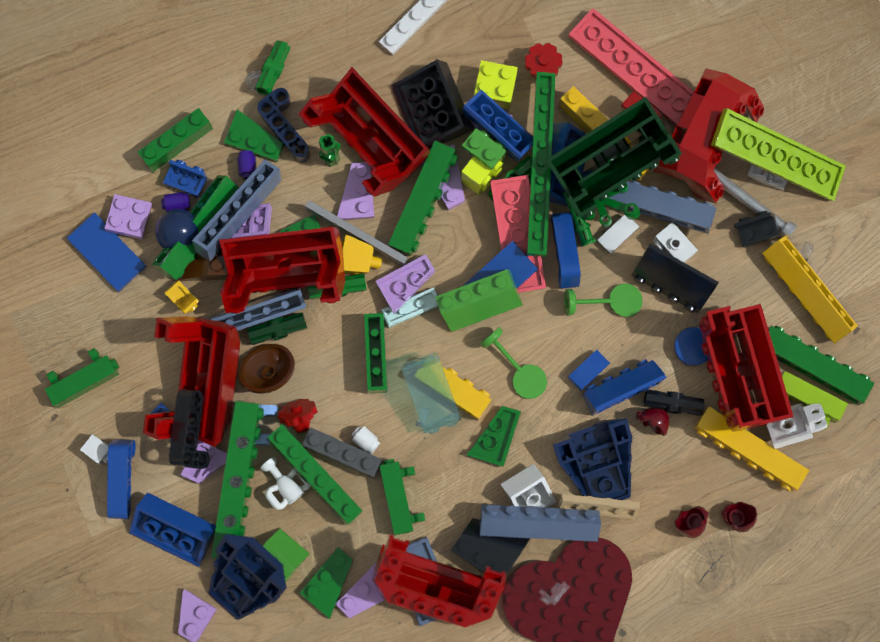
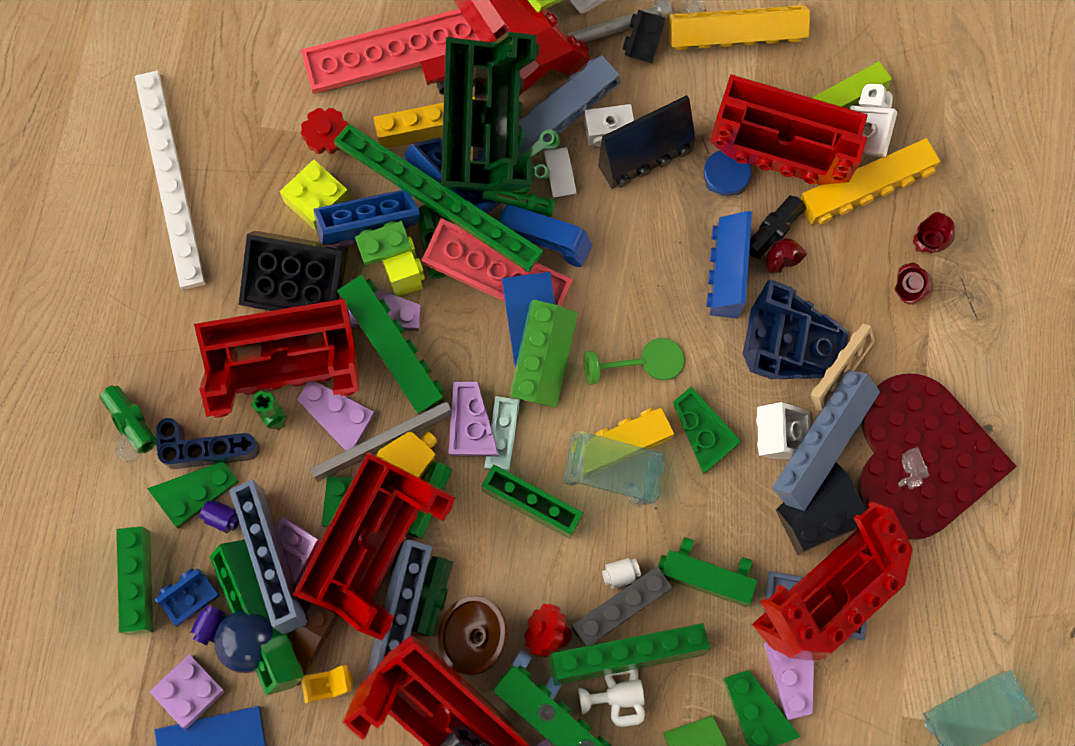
camera: 60 degrees left, 5 degrees down
(588, 370) = (688, 290): blue slope -> none
(623, 300) = (633, 210): bright green piece -> none
(820, 367) = (829, 62): green brick -> none

